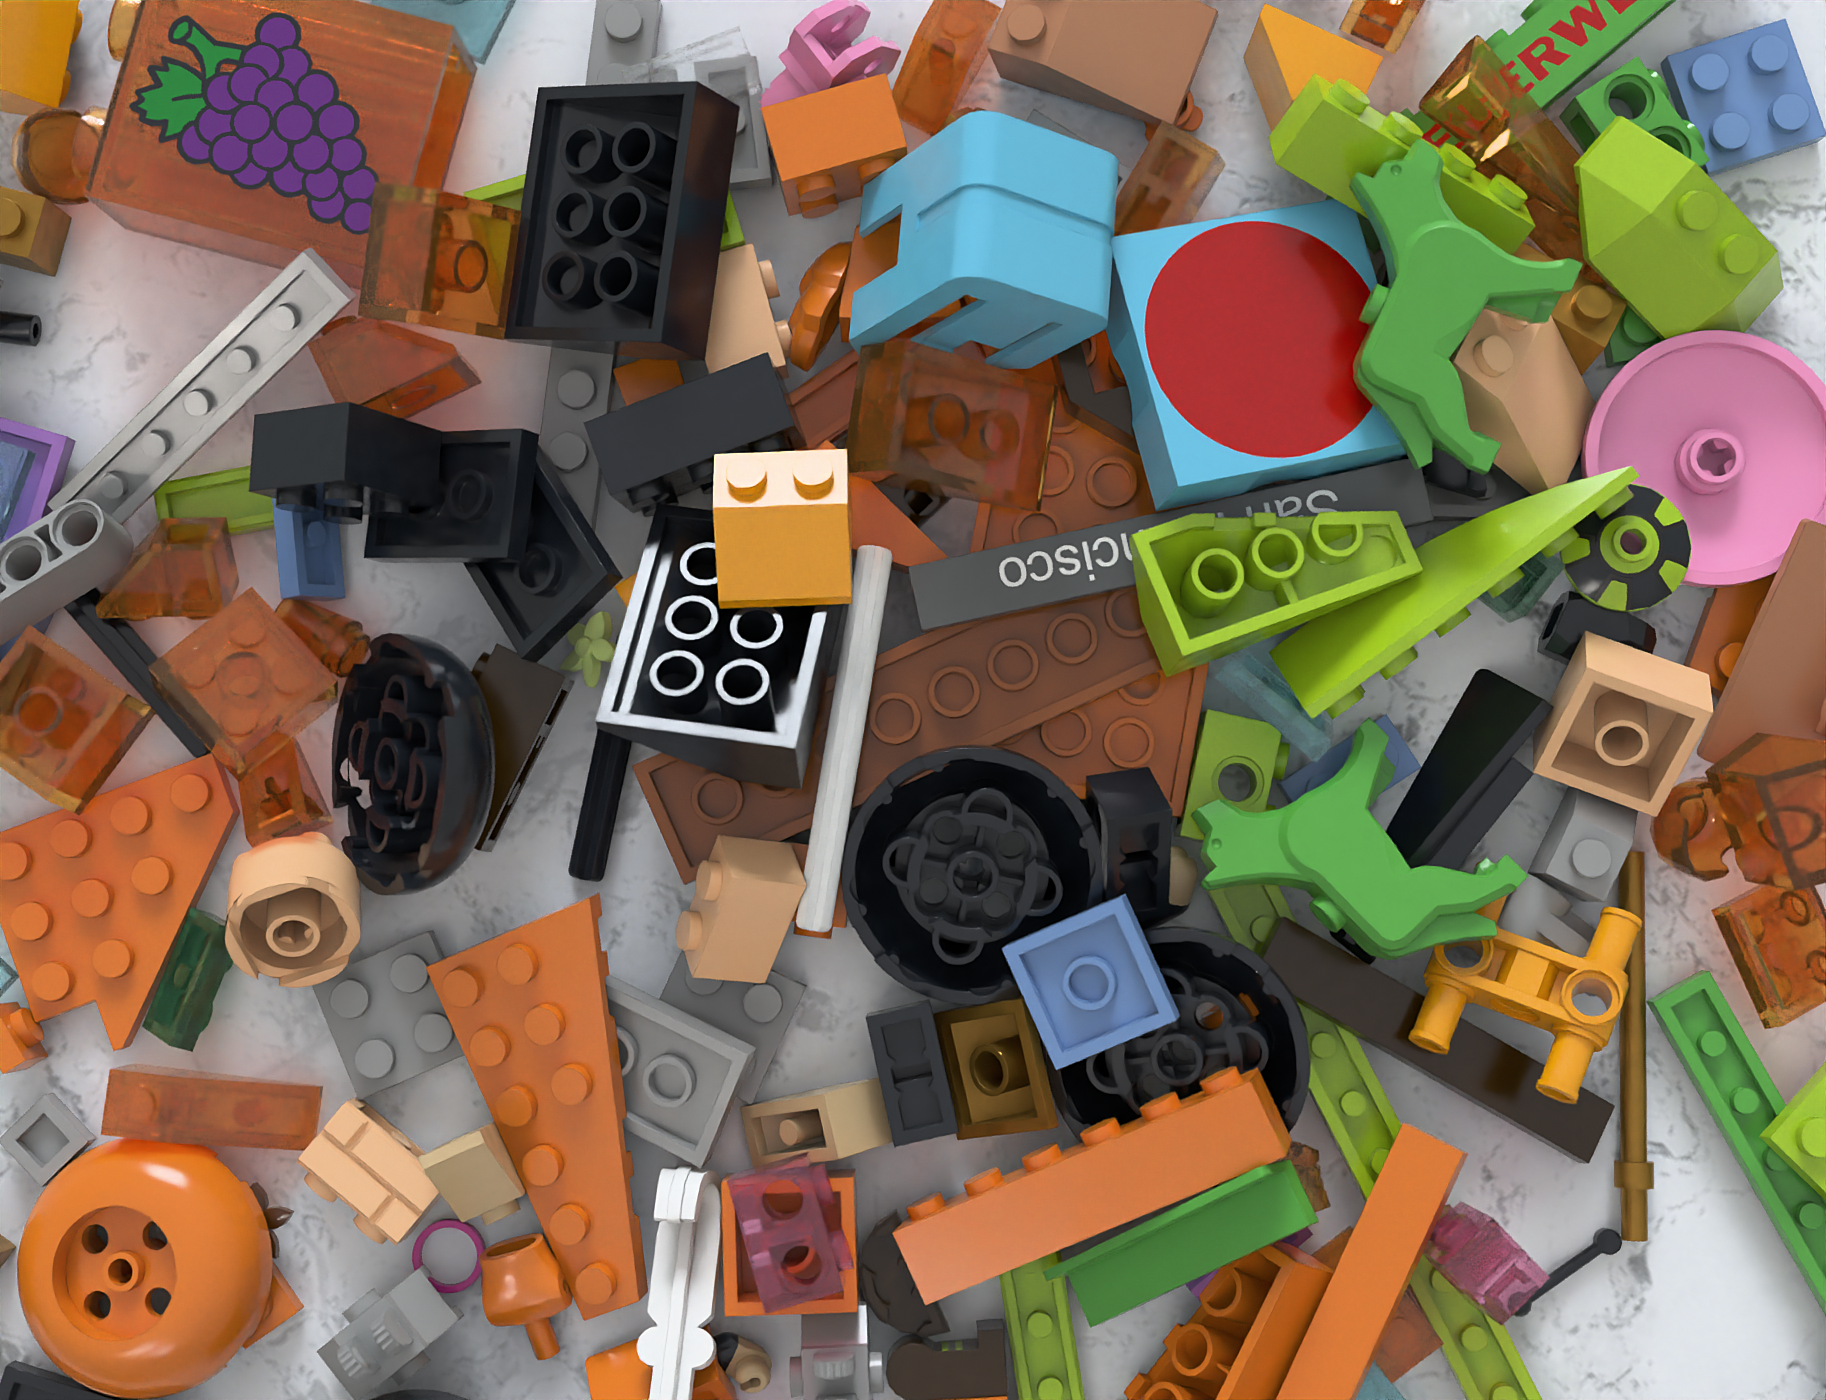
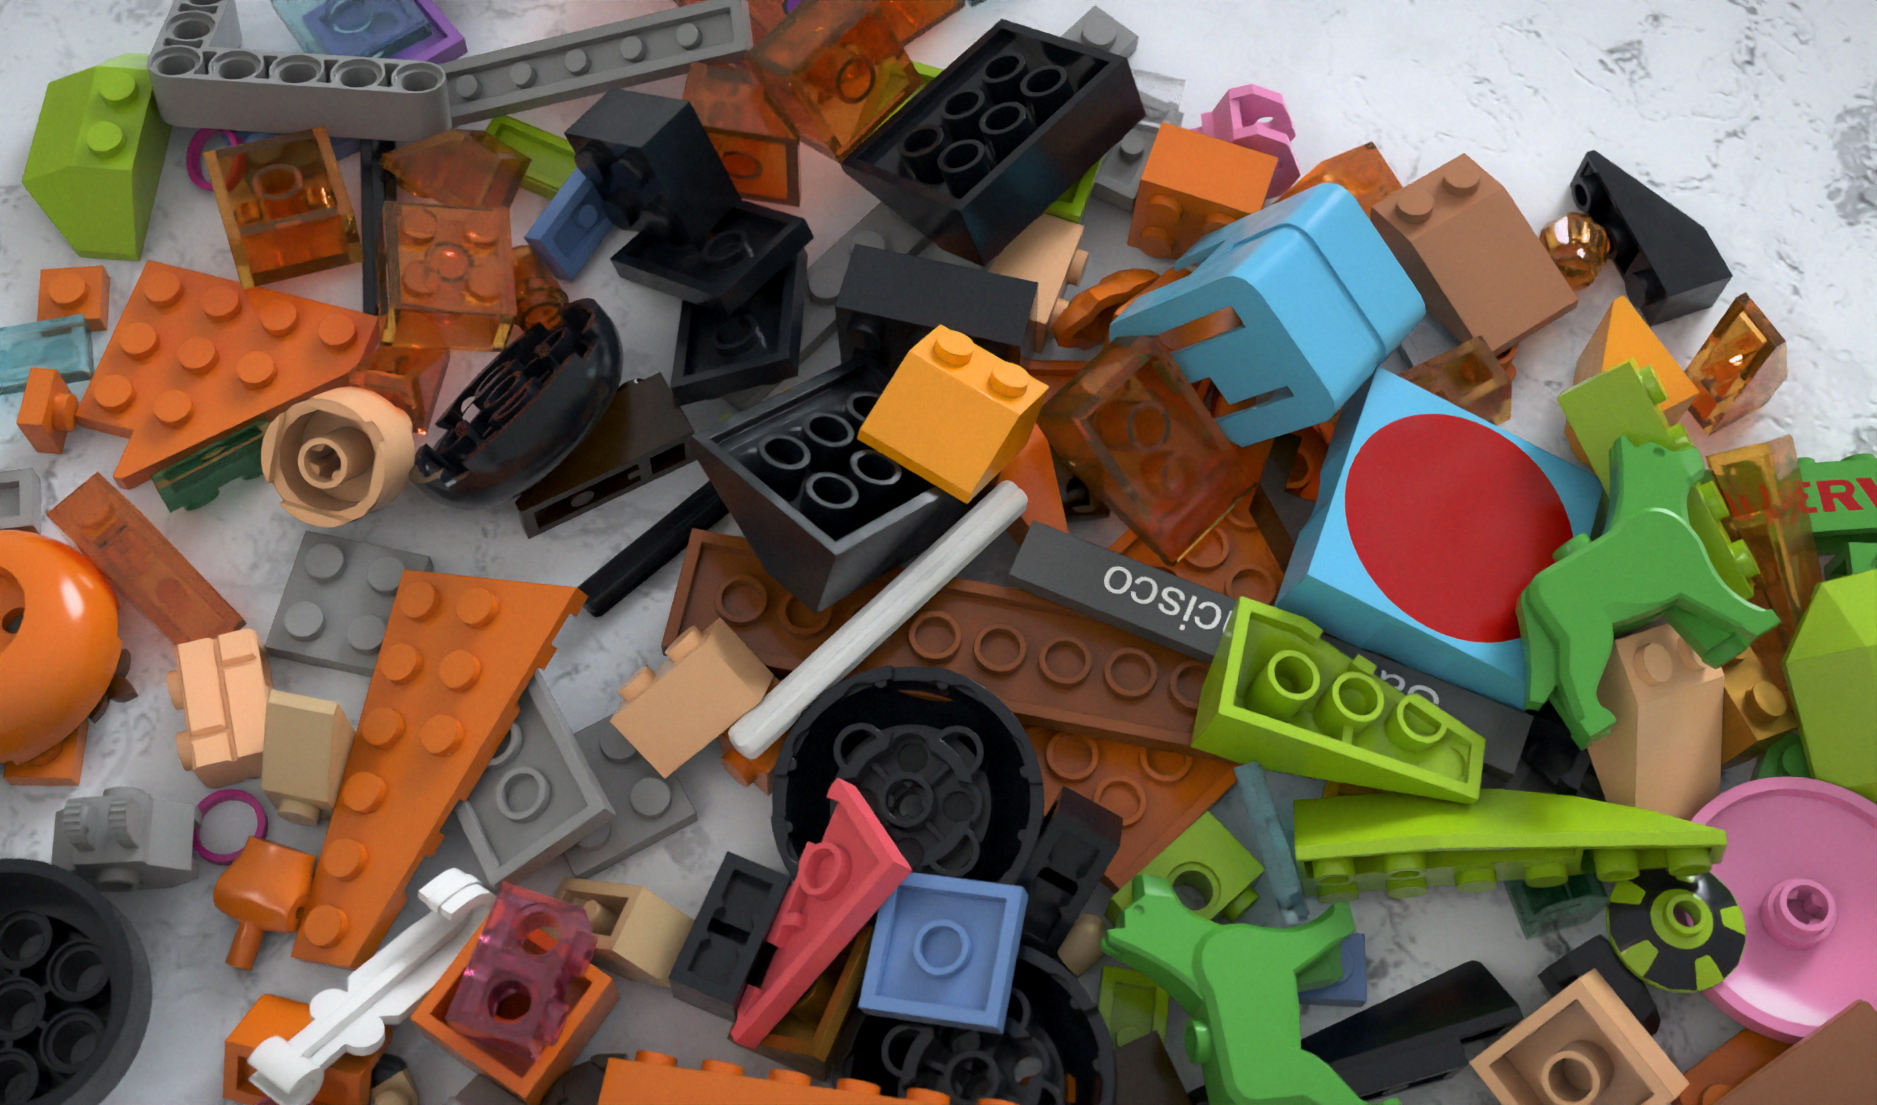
camera: 25 degrees right, 20 degrees down
(975, 1000) = (823, 909): none -> coral wing

